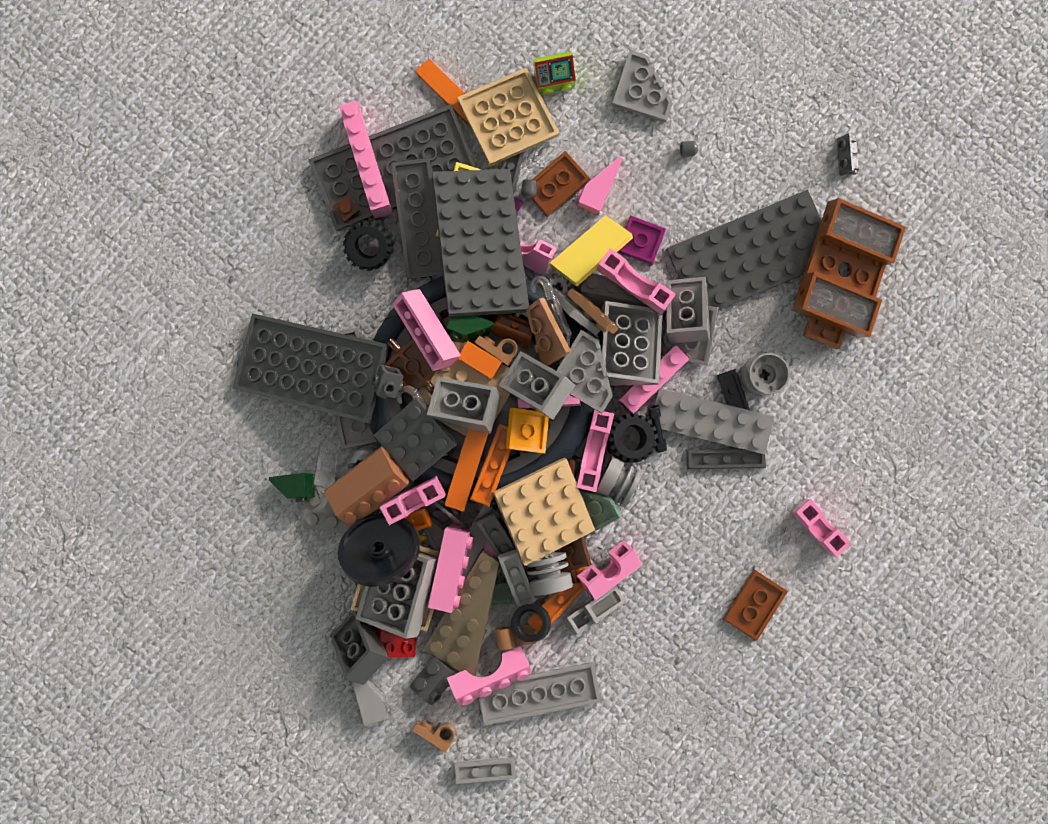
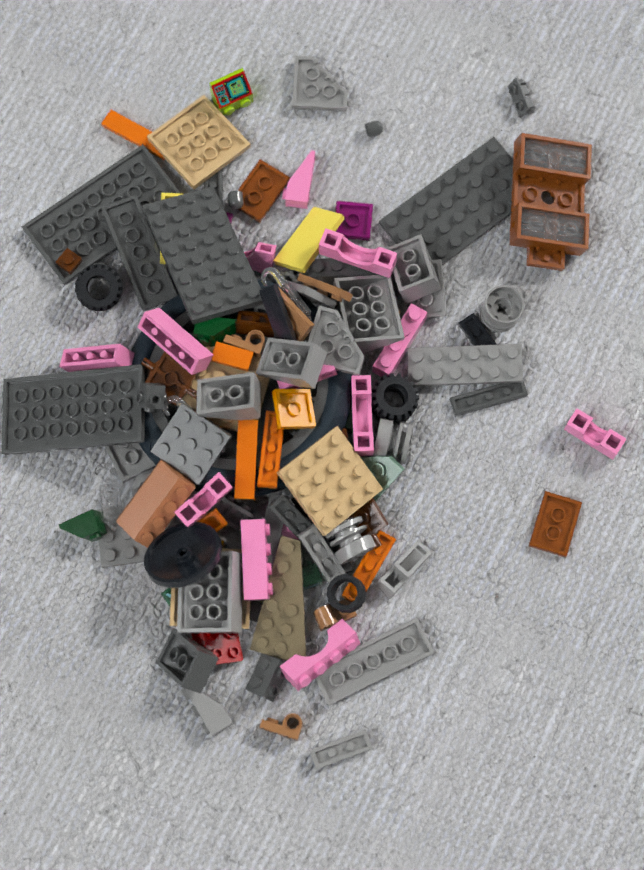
camera: 15 degrees left, 10 degrees down
(346, 321) = (96, 357): none -> bright pink brick
(365, 159) = (76, 211): bright pink arch -> none
(537, 330) = (277, 313): none -> black tile
(622, 563) = (418, 516): bright pink arch -> none
(654, 413) = (408, 369): black bar -> none

